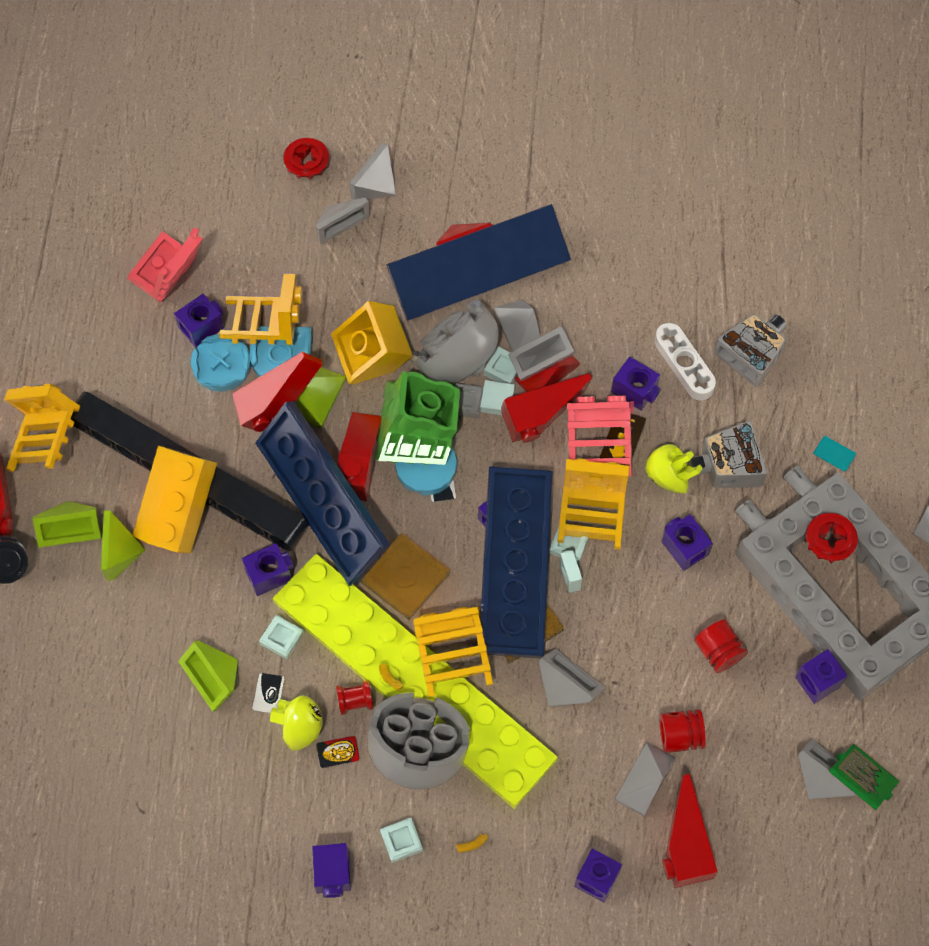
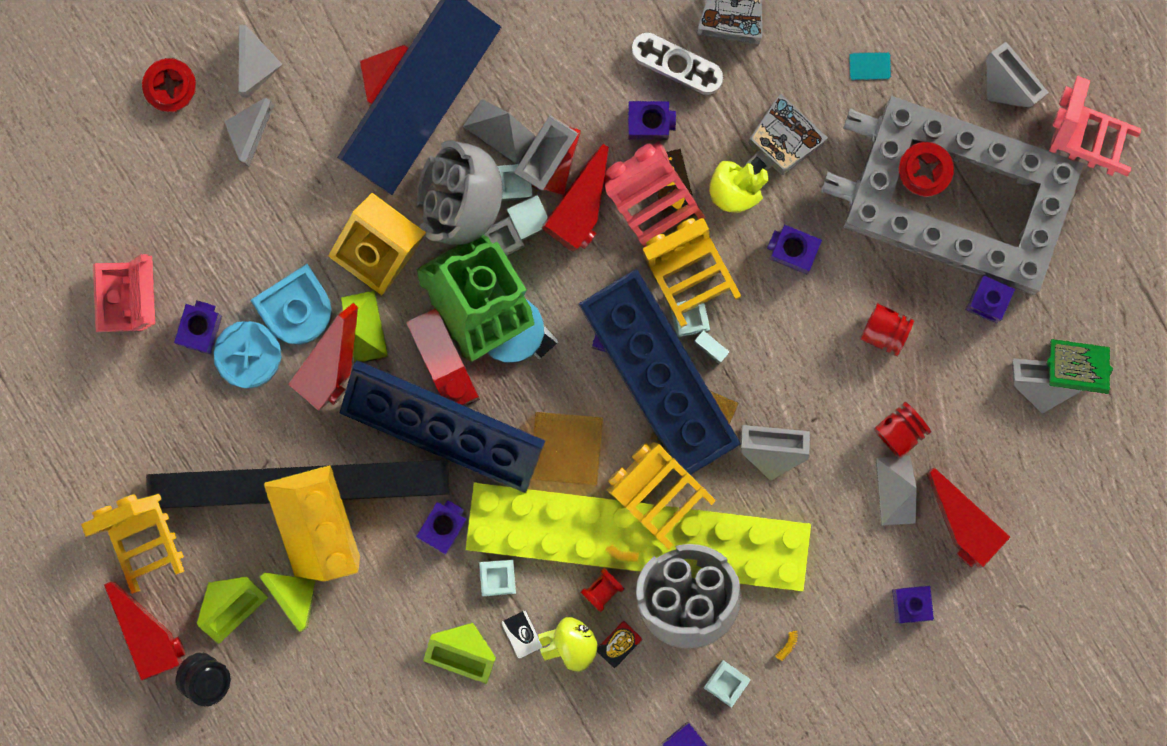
camera: 35 degrees left, 20 degrees up
(282, 319) = (277, 275): yellow plate -> none

